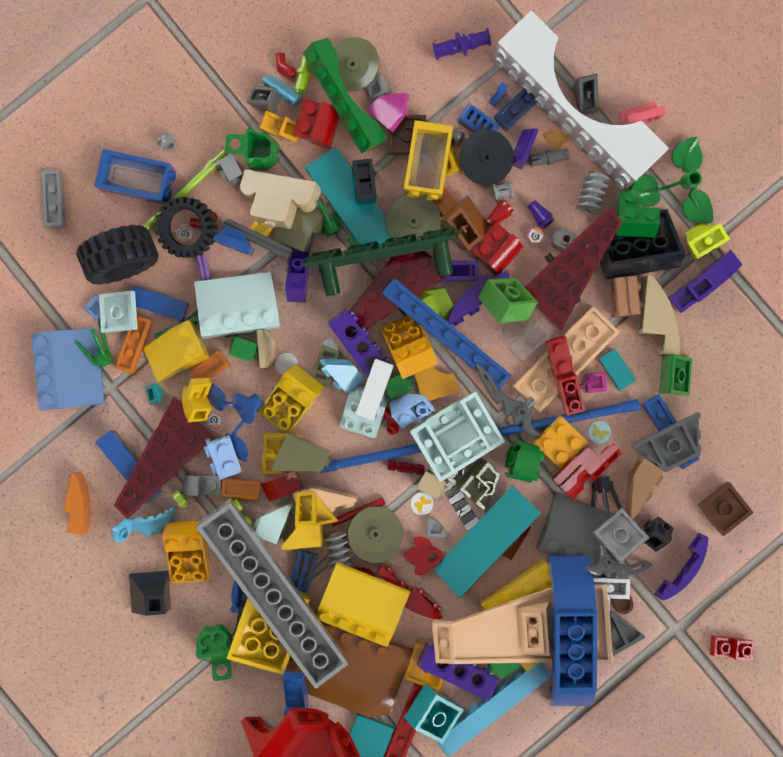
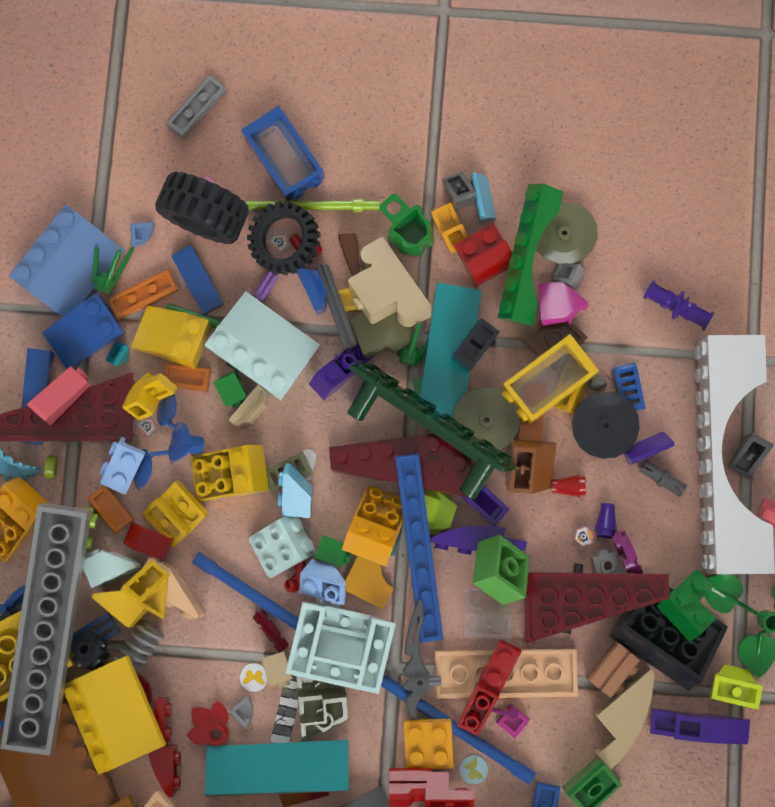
camera: 50 degrees right, 5 degrees down
(118, 312) = (156, 255): light aqua plate -> none
(119, 400) = (83, 331): none -> blue slope
(143, 450) = (59, 395): none -> coral slope
(167, 142) = (339, 149): light grey plate -> none
(202, 485) = (80, 472): light grey slope -> none
(230, 170) = (370, 225): light grey brick -> none
(231, 196) = (349, 246): none -> reddish brown slope
(283, 68) = (501, 179): red arm -> none
(284, 362) = (256, 435): white sticker -> none
(300, 455) = (189, 530): olive slope -> none
(304, 74) = (513, 202): lime pin -> none
(311, 581) = (89, 650): none -> black brick
(346, 319) = (323, 521): dark purple brick -> none
(351, 514) = (192, 629): red bar -> none
(374, 389) = (307, 535): white tile -> none
(375, 534) = (185, 664): olive piece -> none
(497, 249) = (537, 515): red brick -> none
(501, 90) = (674, 379): blue tile -> none
(502, 191) = (595, 474): light grey bush -> none
(515, 109) = (672, 407): dark blue tile -> none
(523, 461) = (378, 728): green brick -> none
(555, 138) = (685, 467): clear yellow tile -> none
(566, 217) = (624, 546): none -> magenta plate
(591, 192) = (671, 546): light grey piece -> none
(617, 369) = (543, 728): teal tile -> none

